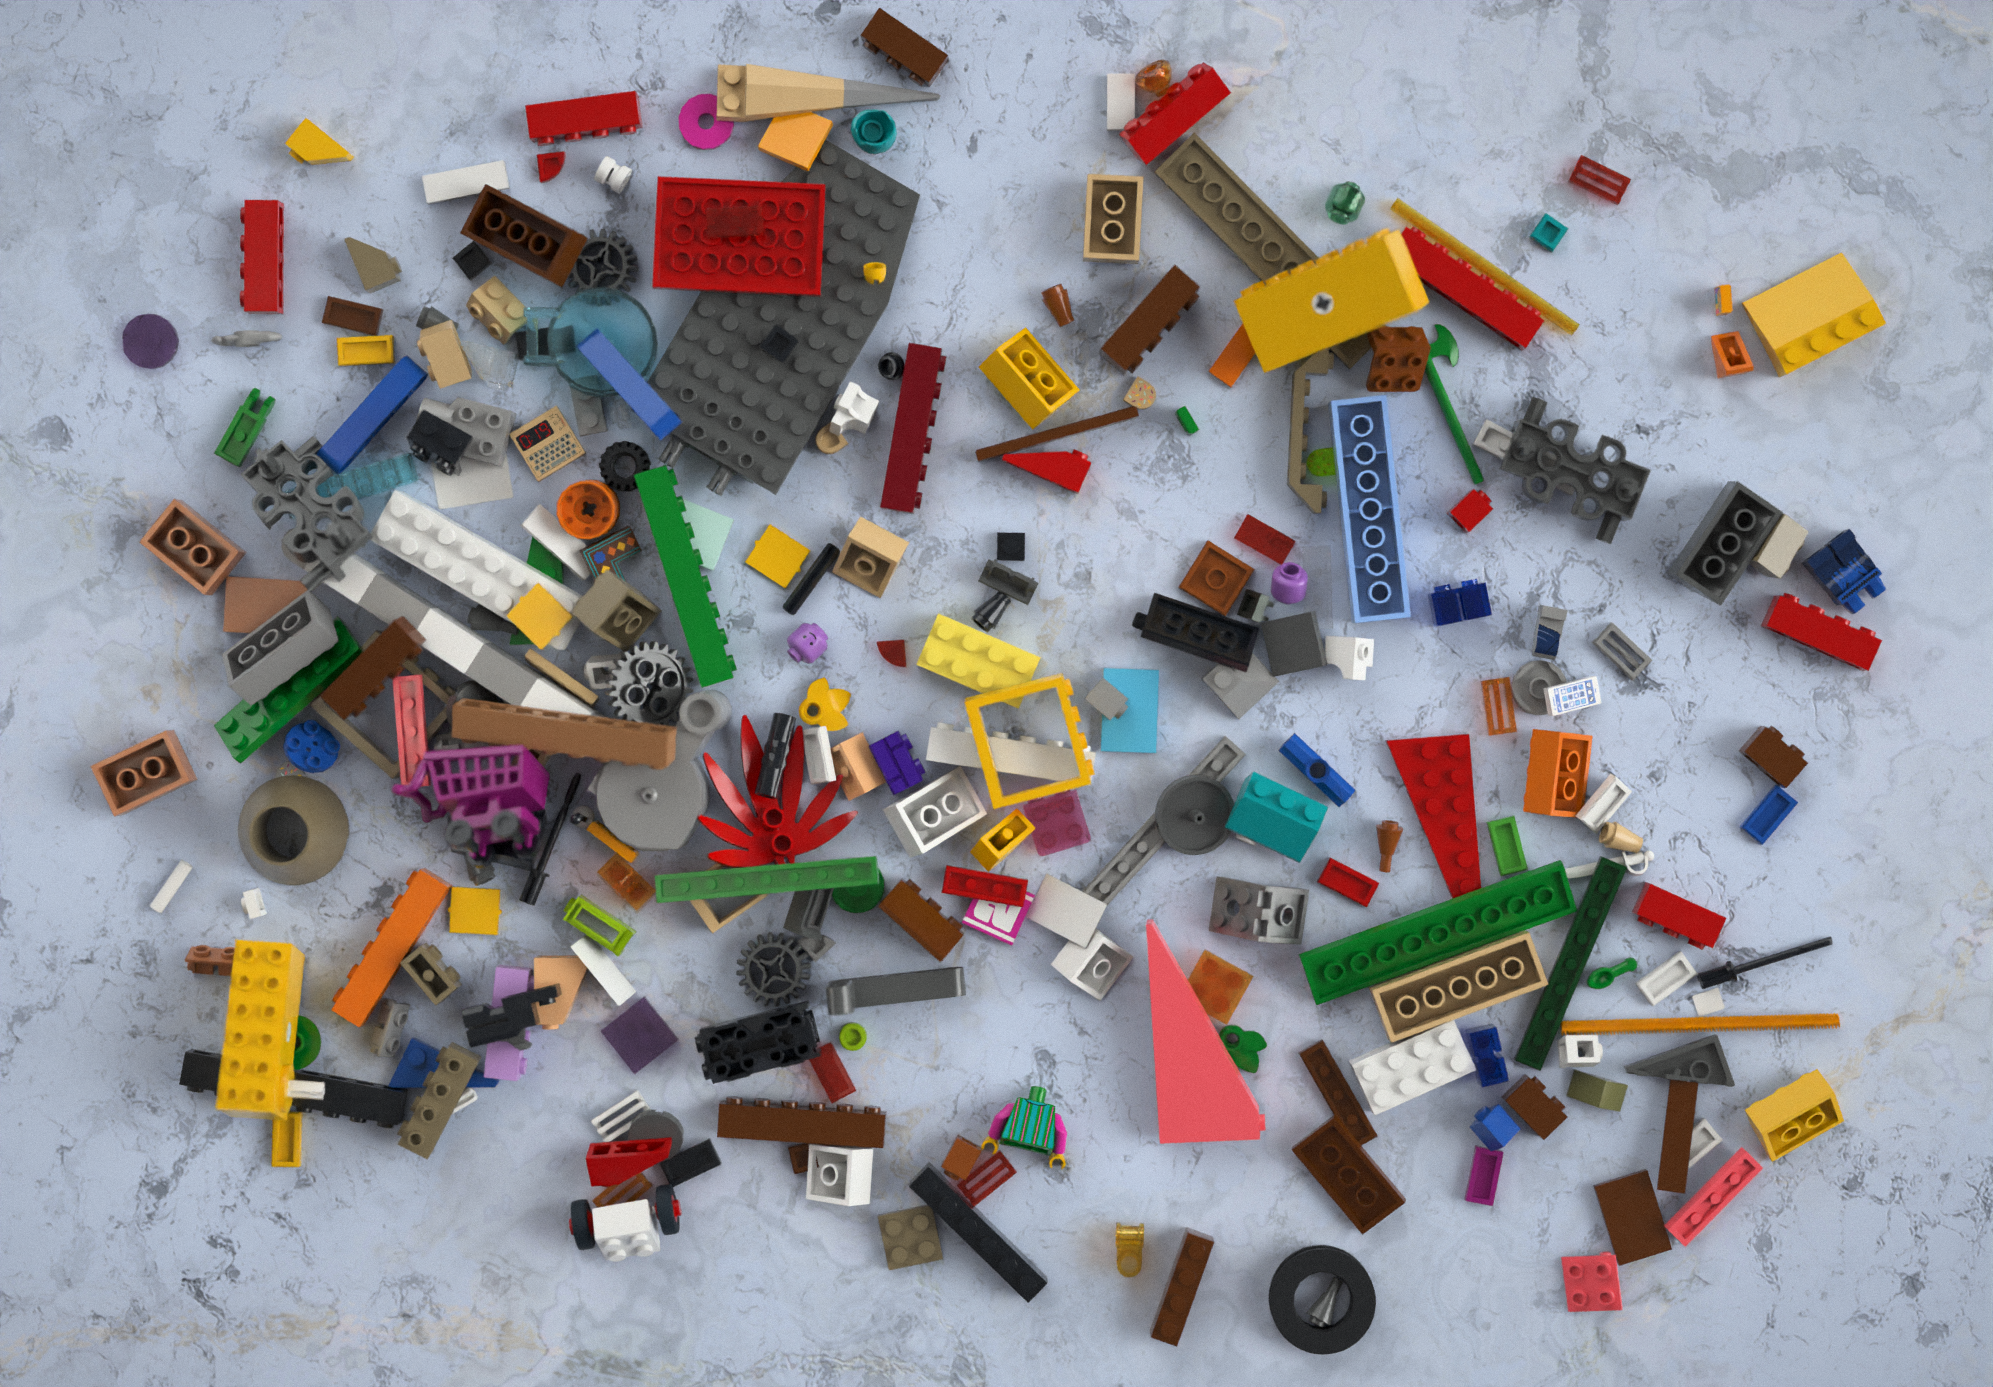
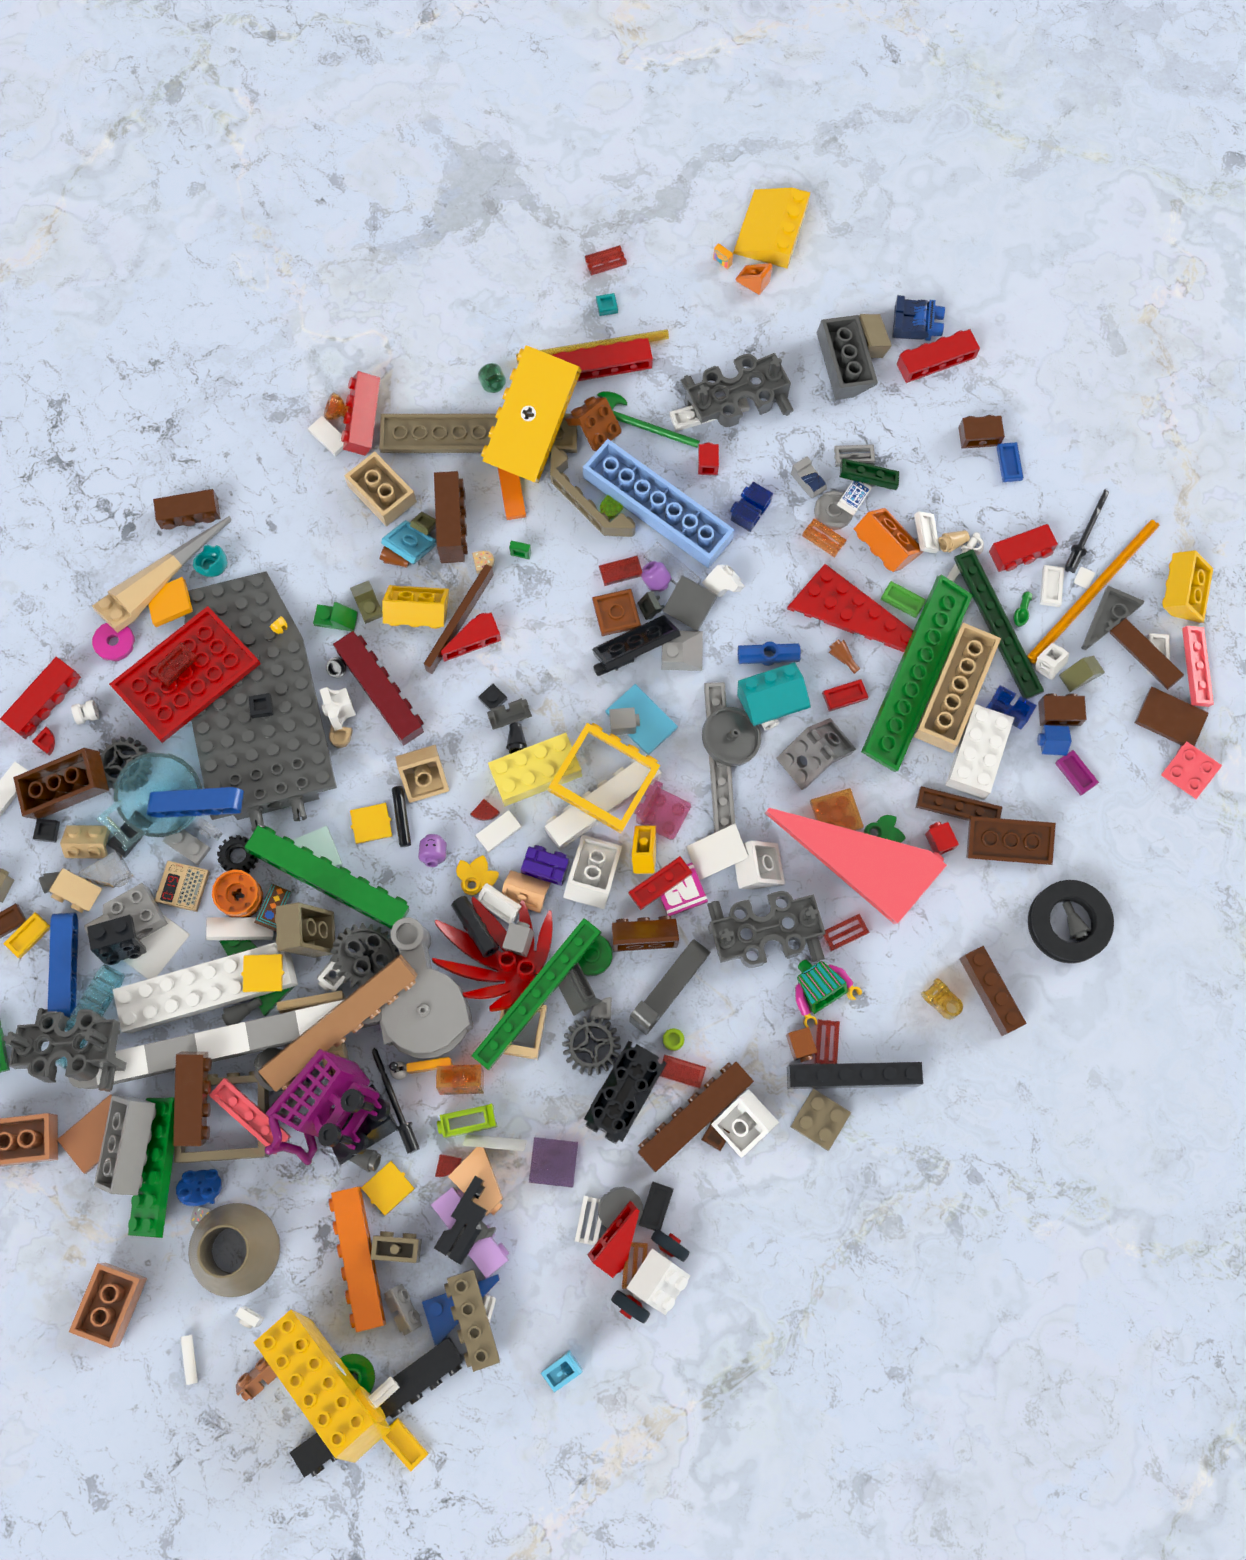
camera: 50 degrees left, 15 degrees down
(475, 1216) = (562, 1371): none -> medium azure slope
(544, 944) = (447, 1165): none -> clear red tile
(802, 808) = (518, 938): none -> light grey brick
(887, 684) = (498, 831): none -> white tile
(941, 311) = (335, 617): none -> green slope
(987, 323) = (366, 601): none -> olive slope
(999, 993) = (806, 929): none -> dark grey gear
(1086, 304) = (409, 542): none -> medium azure tile
(1121, 296) = (423, 523): none -> olive tile
(1129, 1107) = (829, 940): none -> clear red tile
(1287, 1107) = (941, 838): none -> red brick
(1612, 687) = (869, 474): none -> dark green tile

